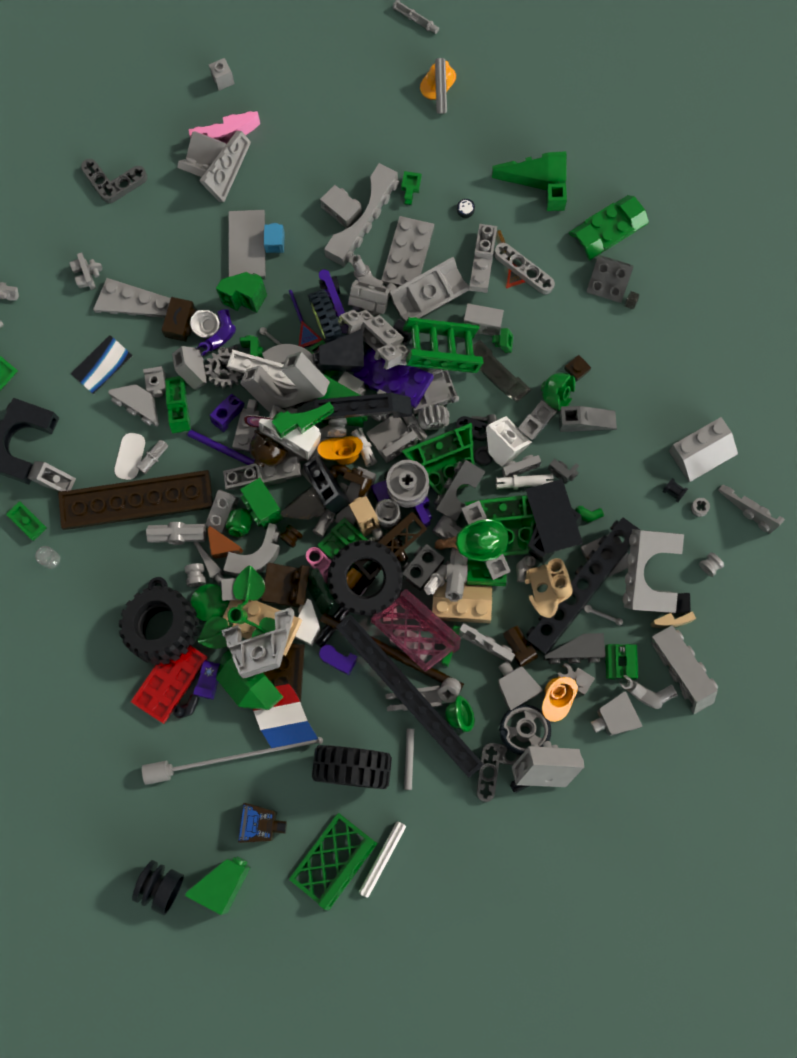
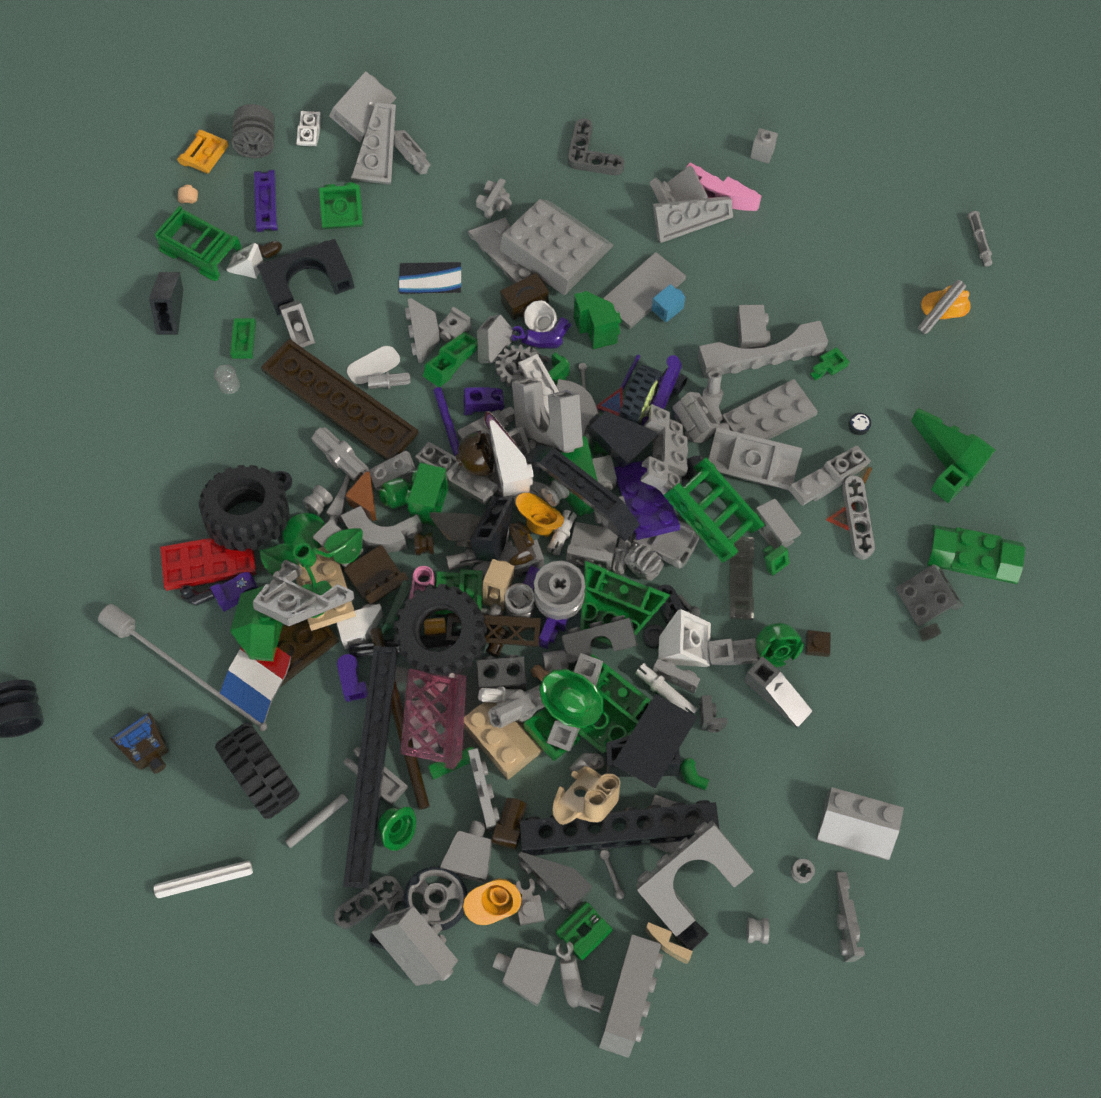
camera: 40 degrees right, 10 degrees down
(161, 267) = (554, 245): none -> light grey slope
(220, 886) = (58, 759): green slope -> none
(286, 422) = (508, 442): green slope -> none
(344, 875) = (163, 858): green fence -> none
(454, 689) = (410, 796): light grey wheel -> none
(675, 490) = (794, 832): black bush -> none

